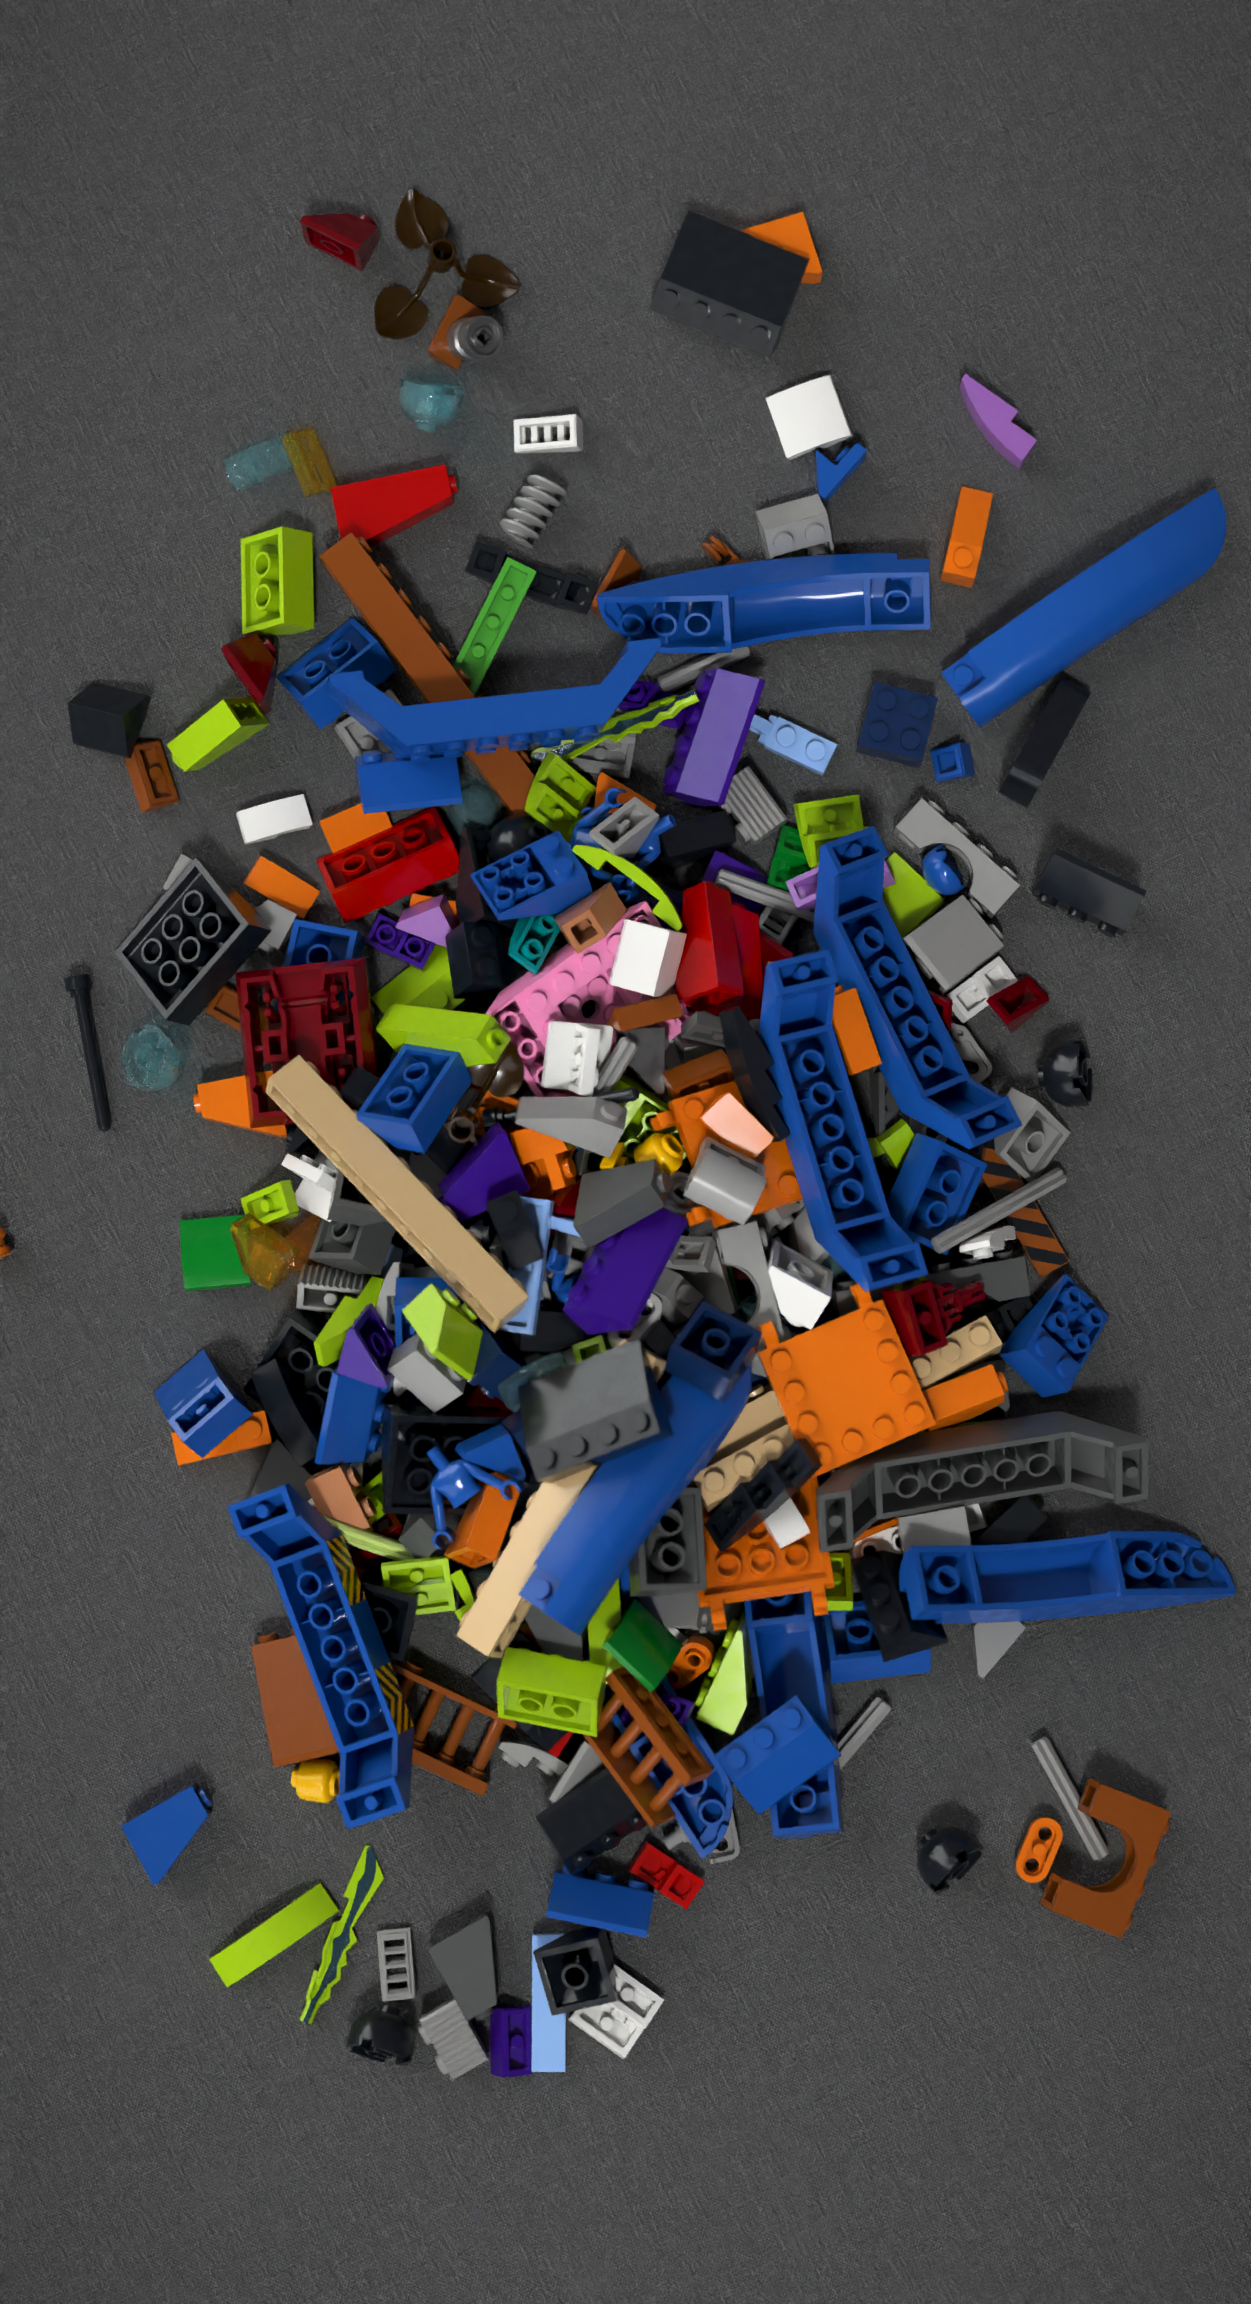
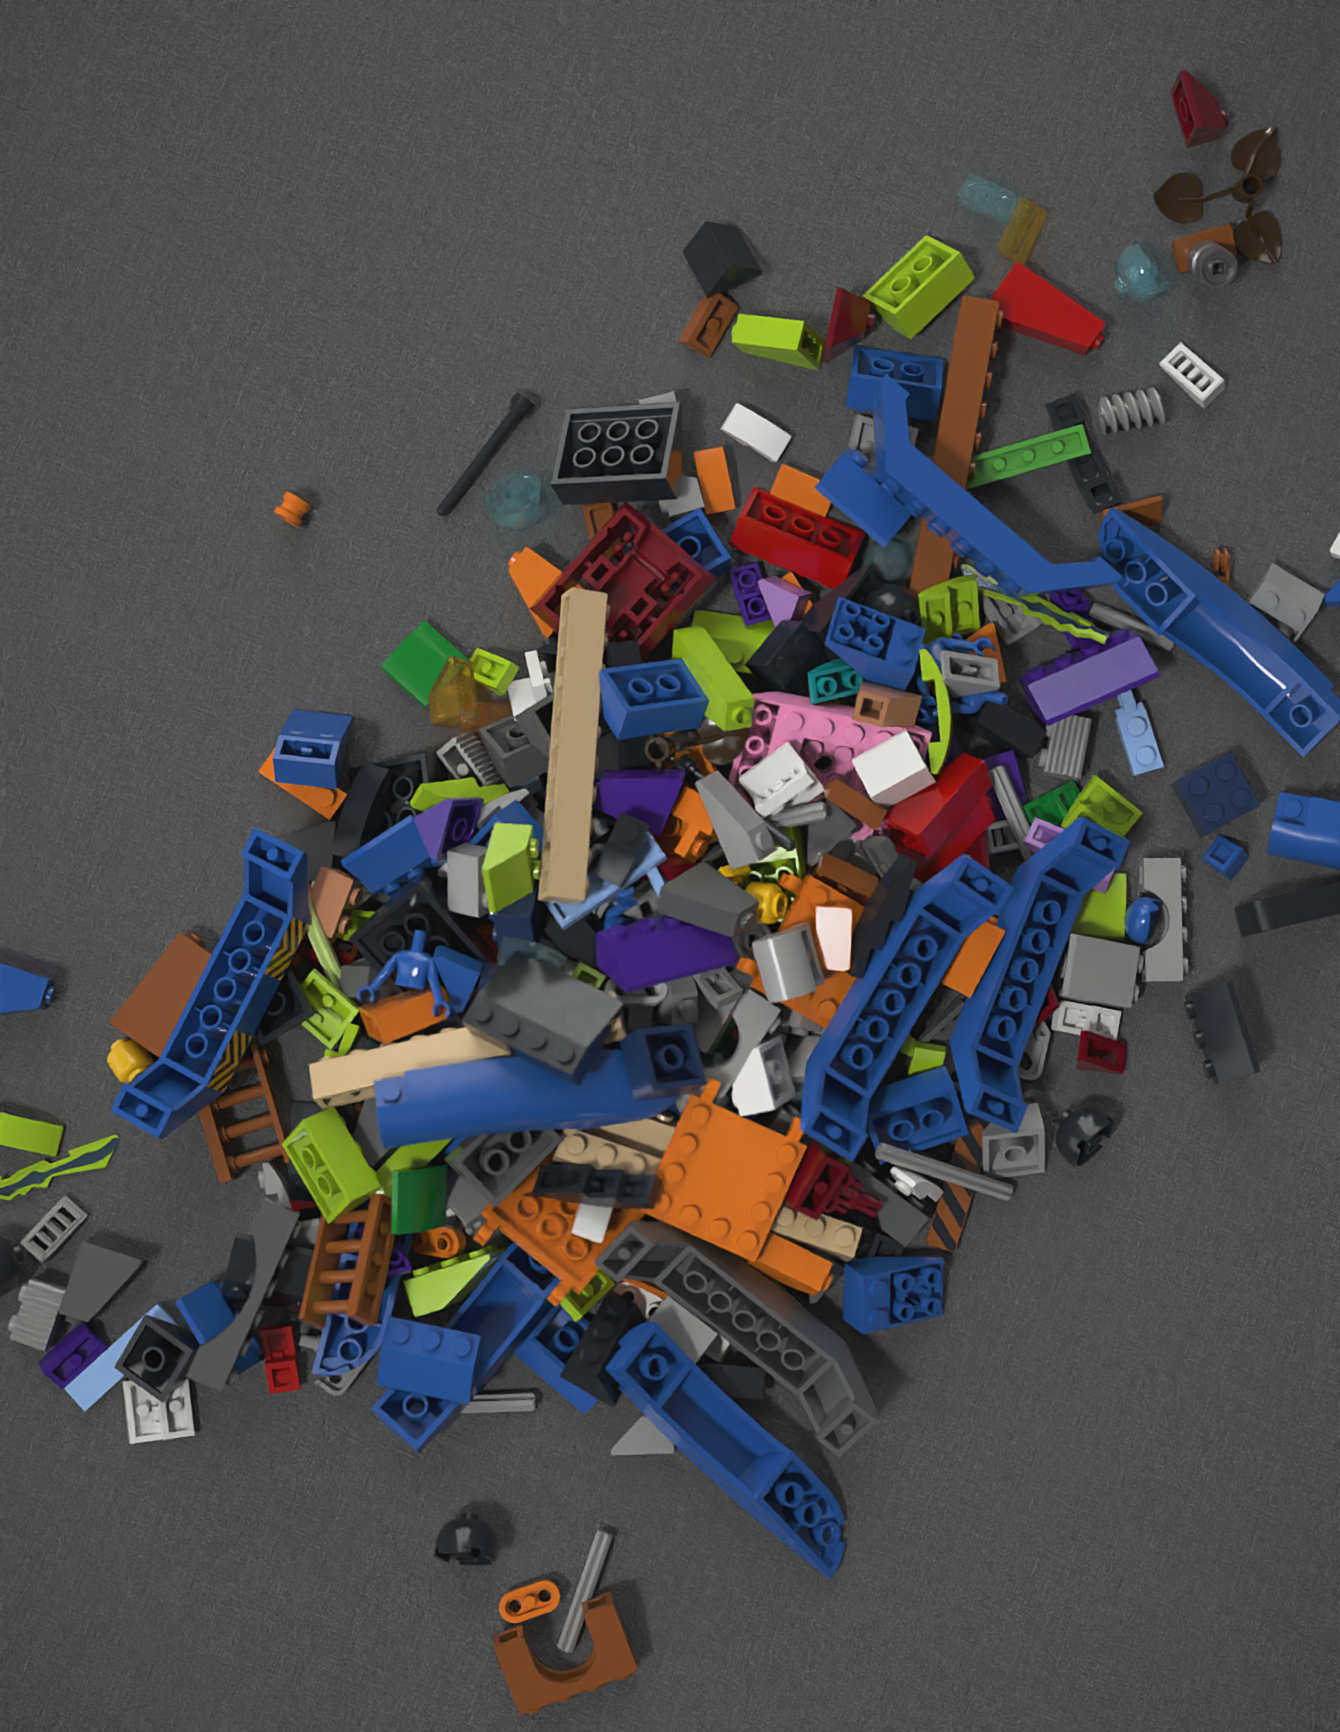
camera: 45 degrees right, 0 degrees up
(620, 1919) = (217, 1355): none -> dark grey arch

